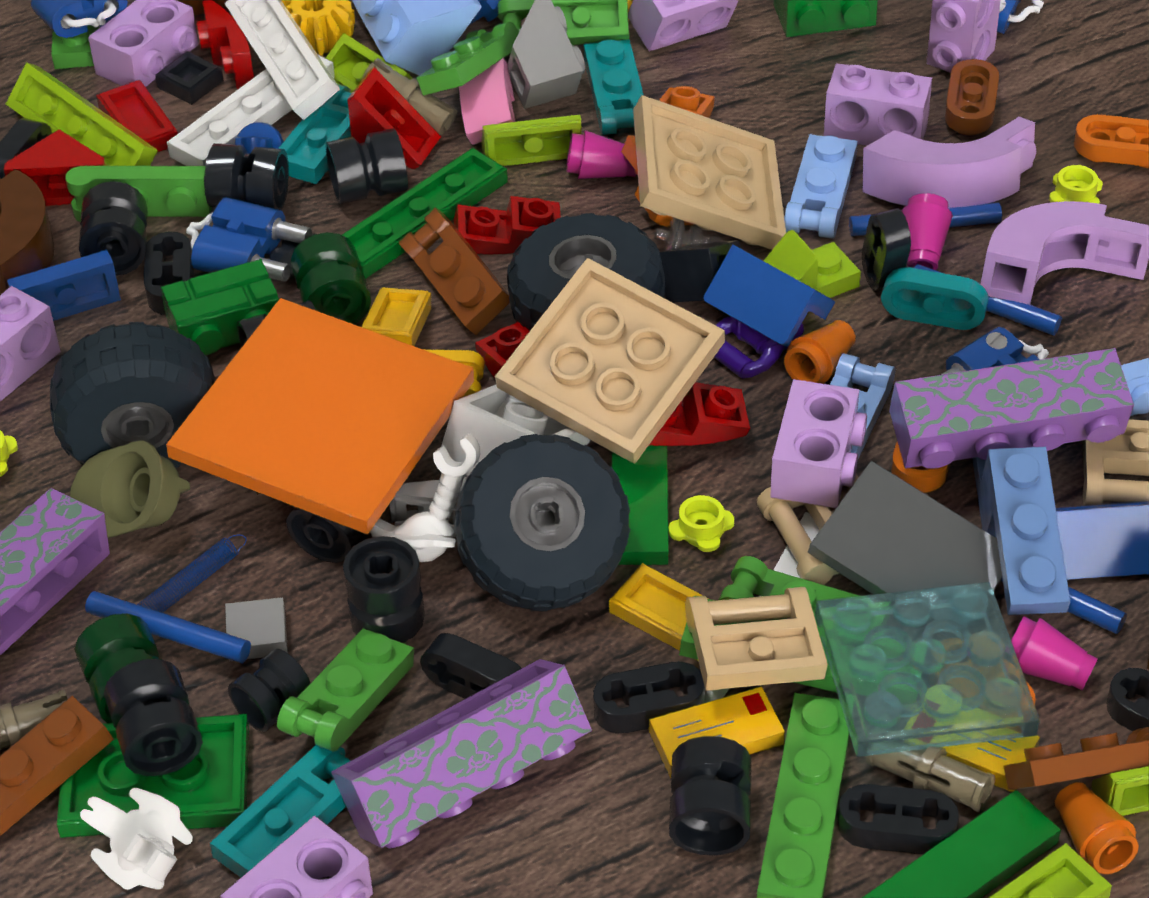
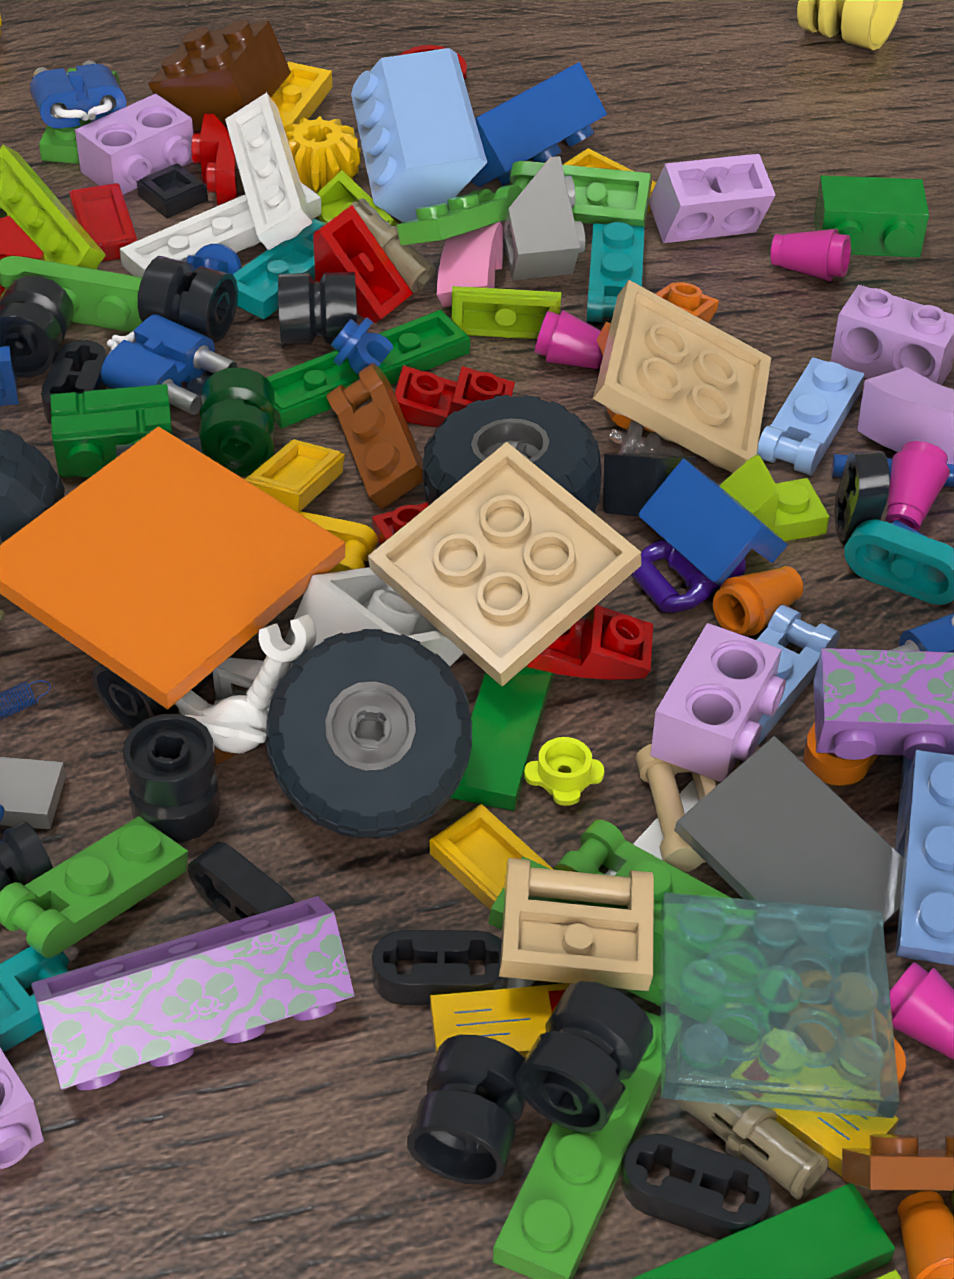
camera: 10 degrees right, 0 degrees up
(417, 194) = (358, 345): none -> blue plate
(784, 39) = (813, 253): none -> dark pink cone
(792, 735) = (586, 1052): none -> black wheel

